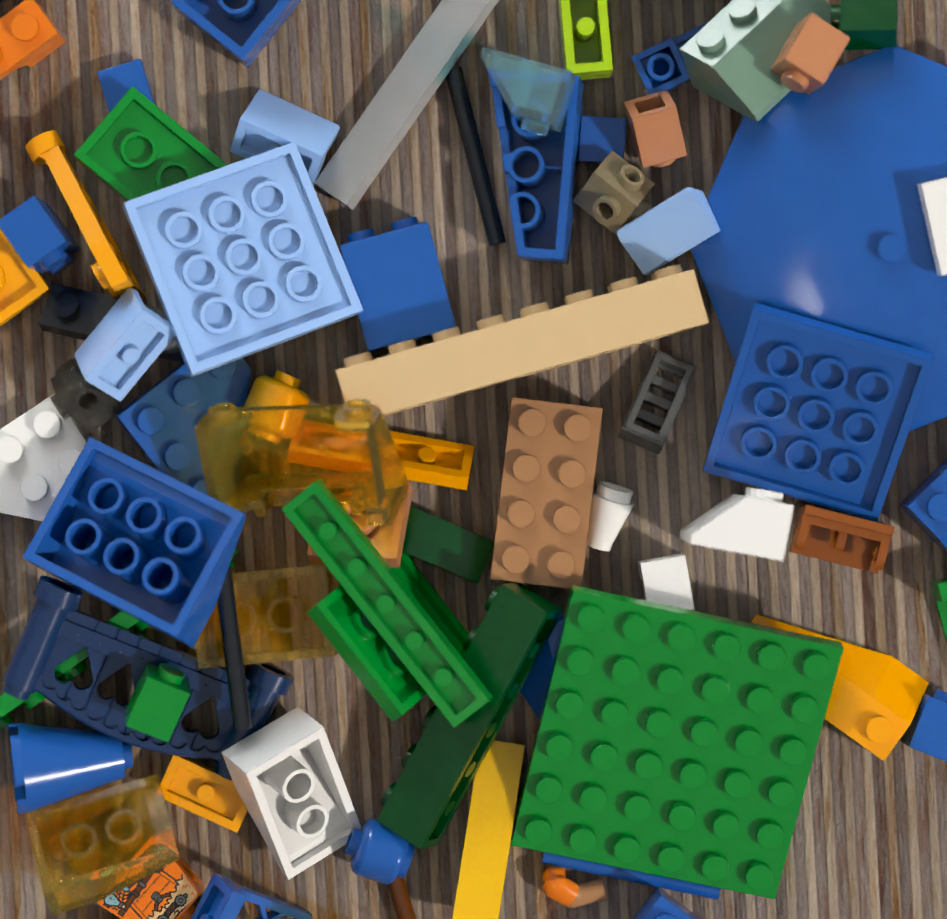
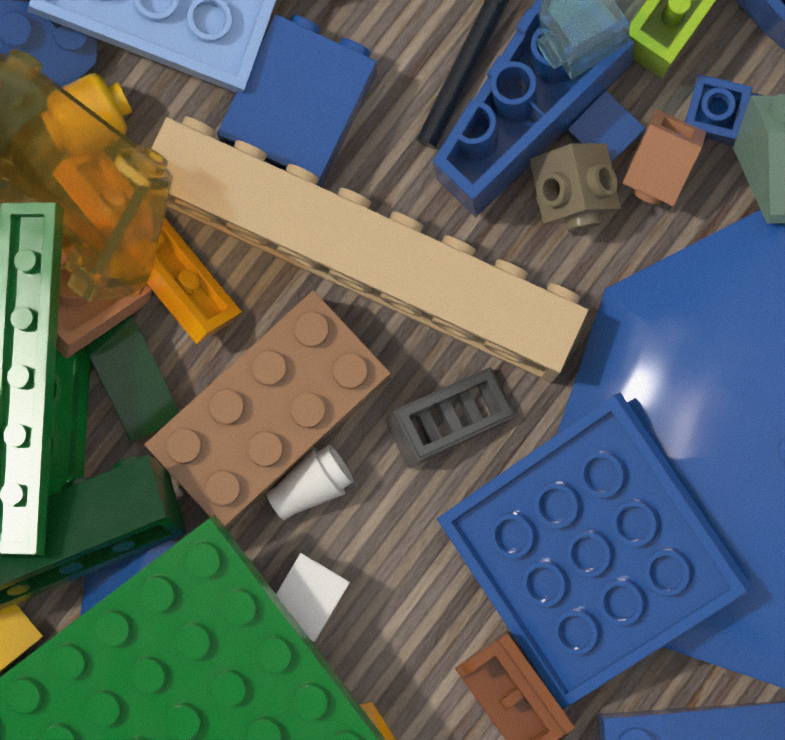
camera: 35 degrees right, 5 degrees down
(668, 230) = (597, 258): light blue slope -> none
(744, 524) = (431, 599): white slope -> none

